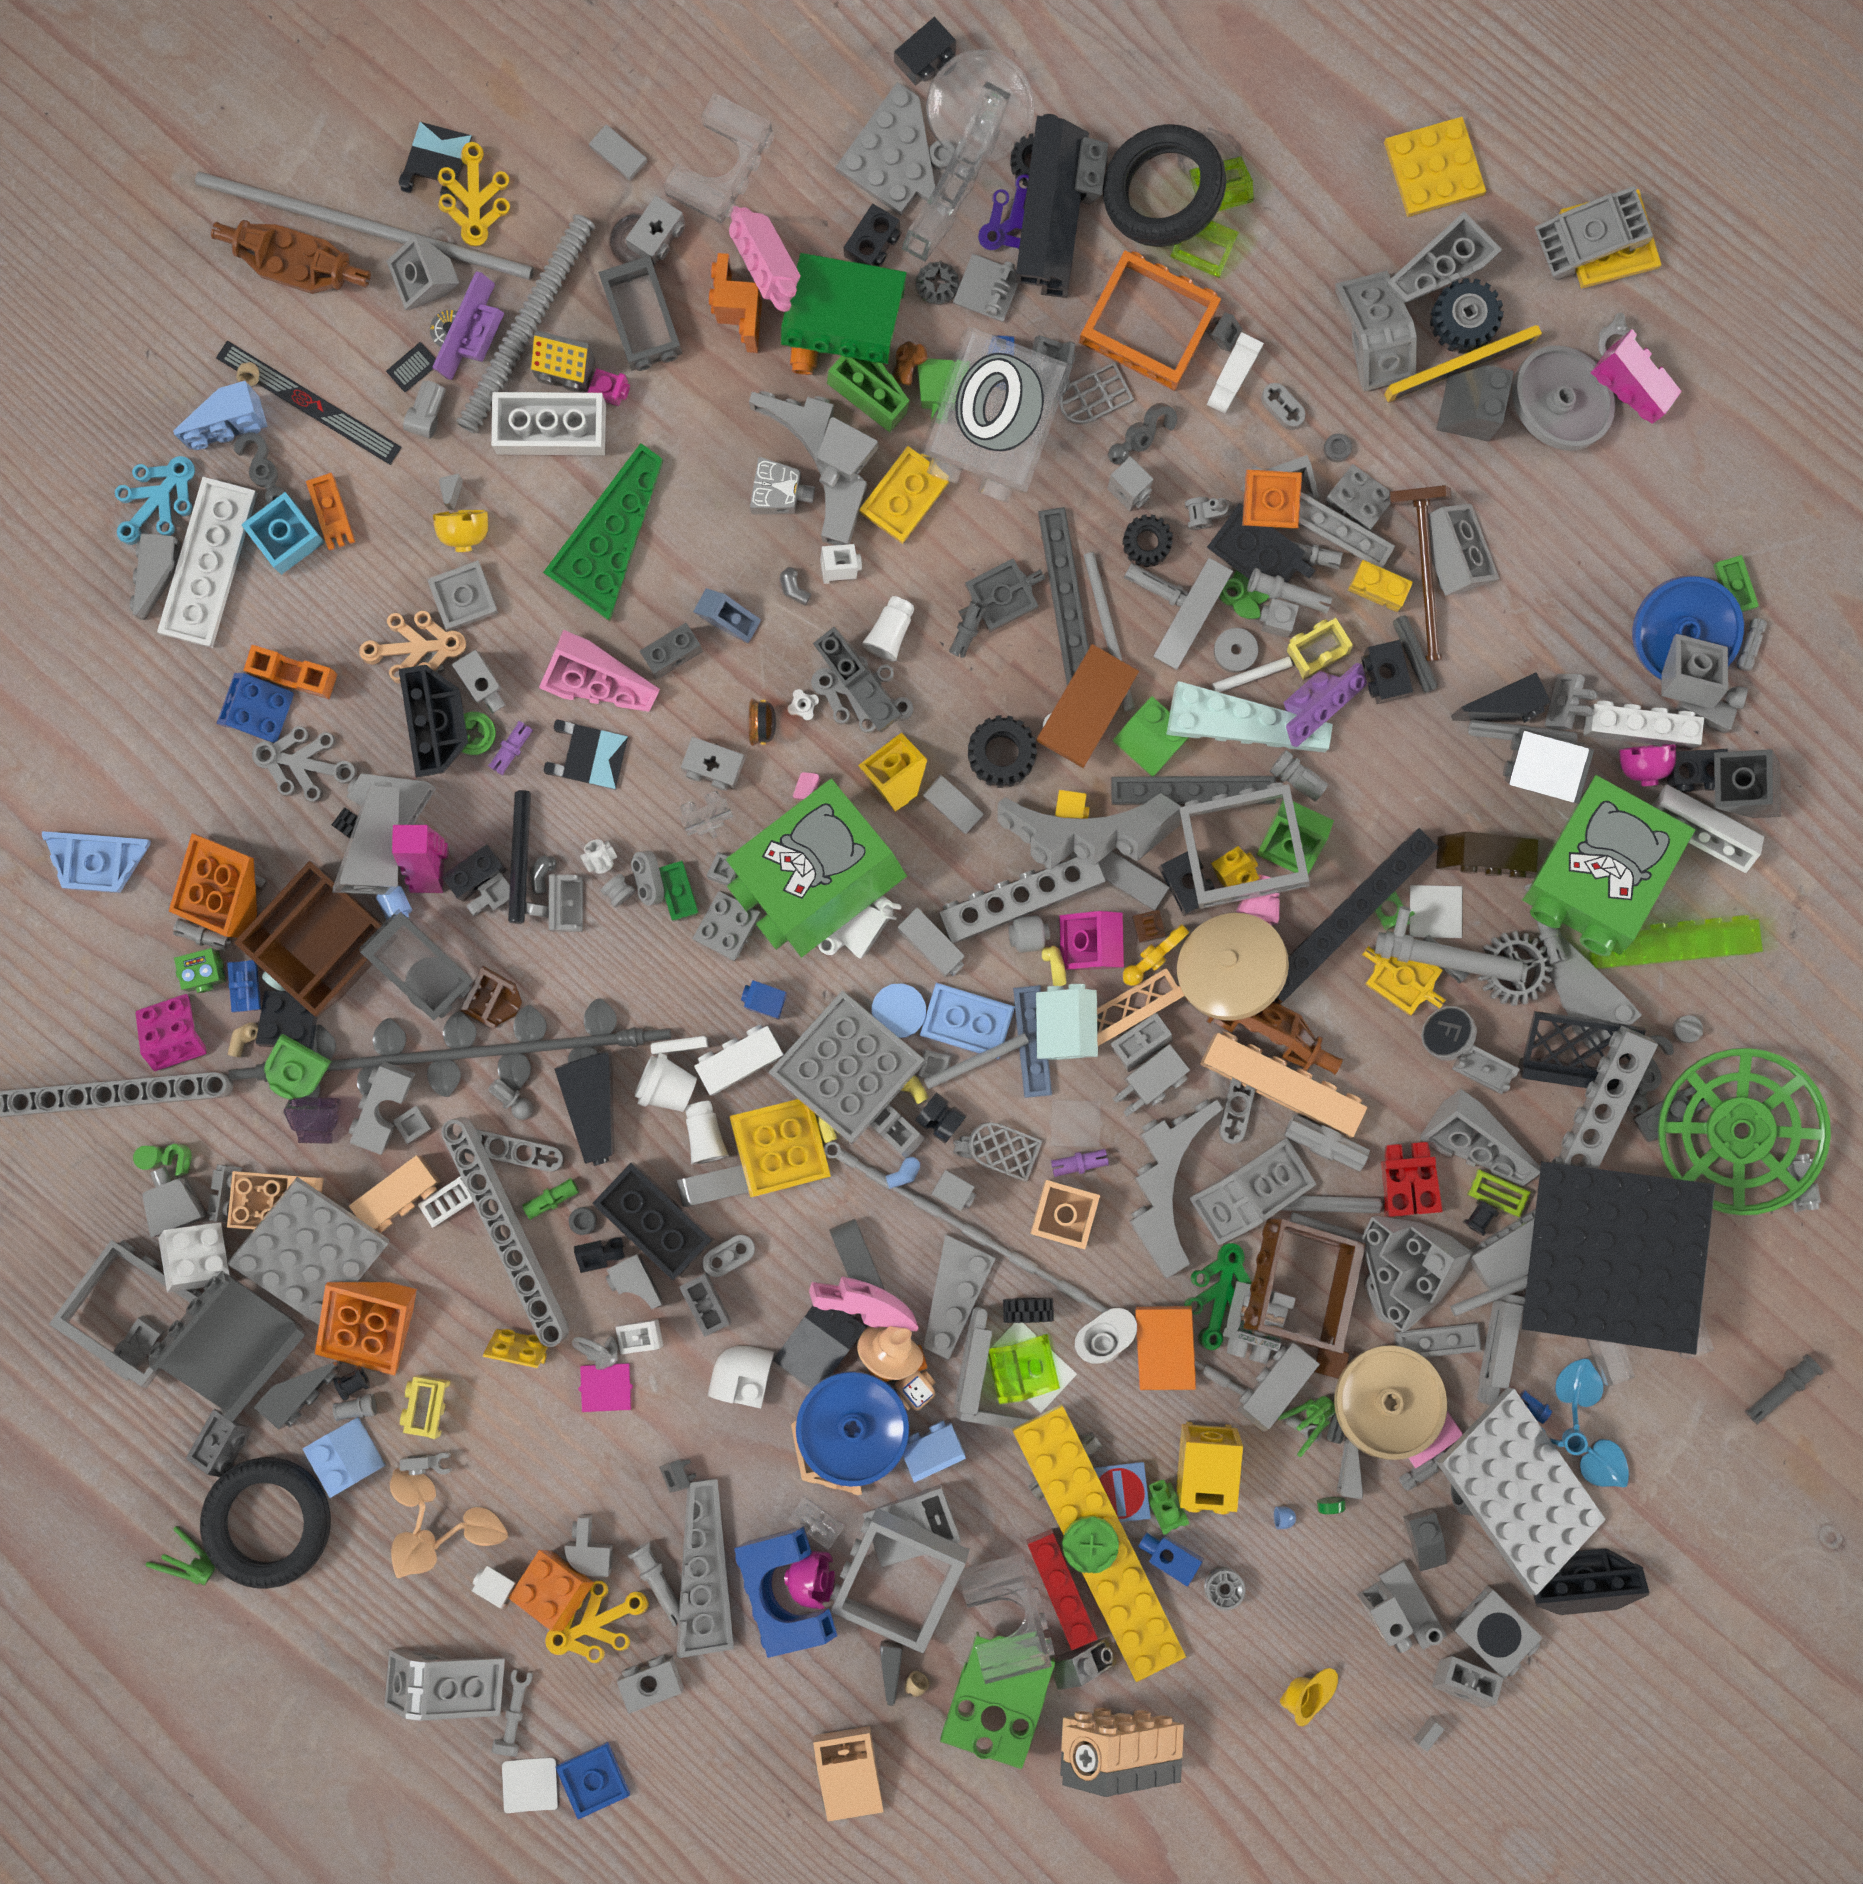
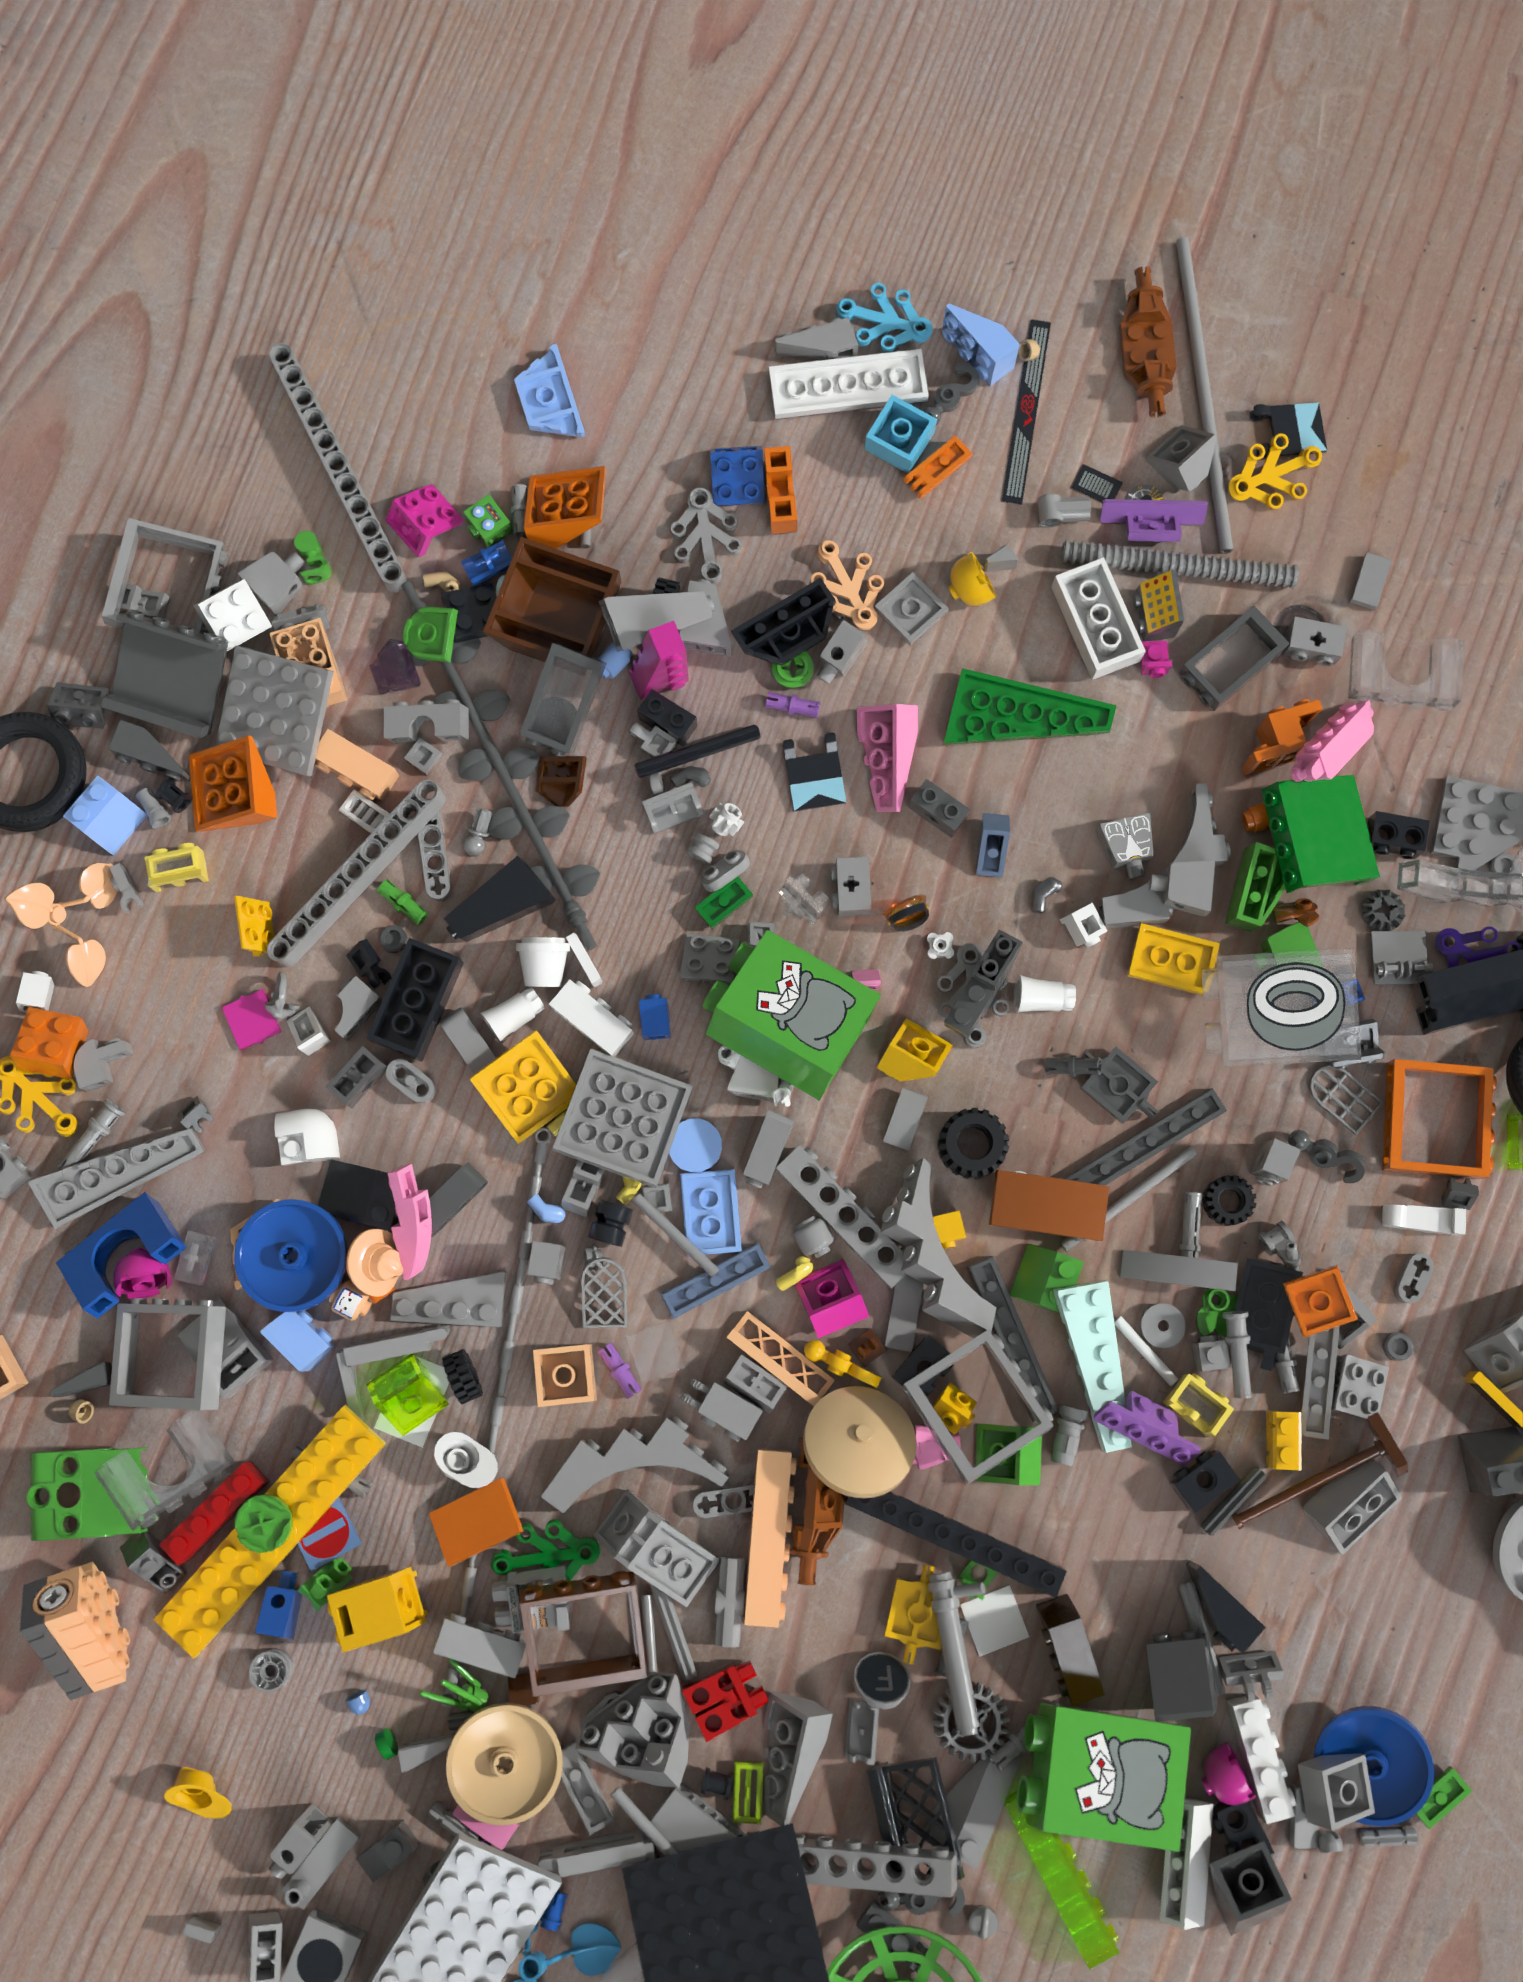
camera: 70 degrees right, 5 degrees down
(1066, 1023) = (744, 1305): light aqua brick -> none

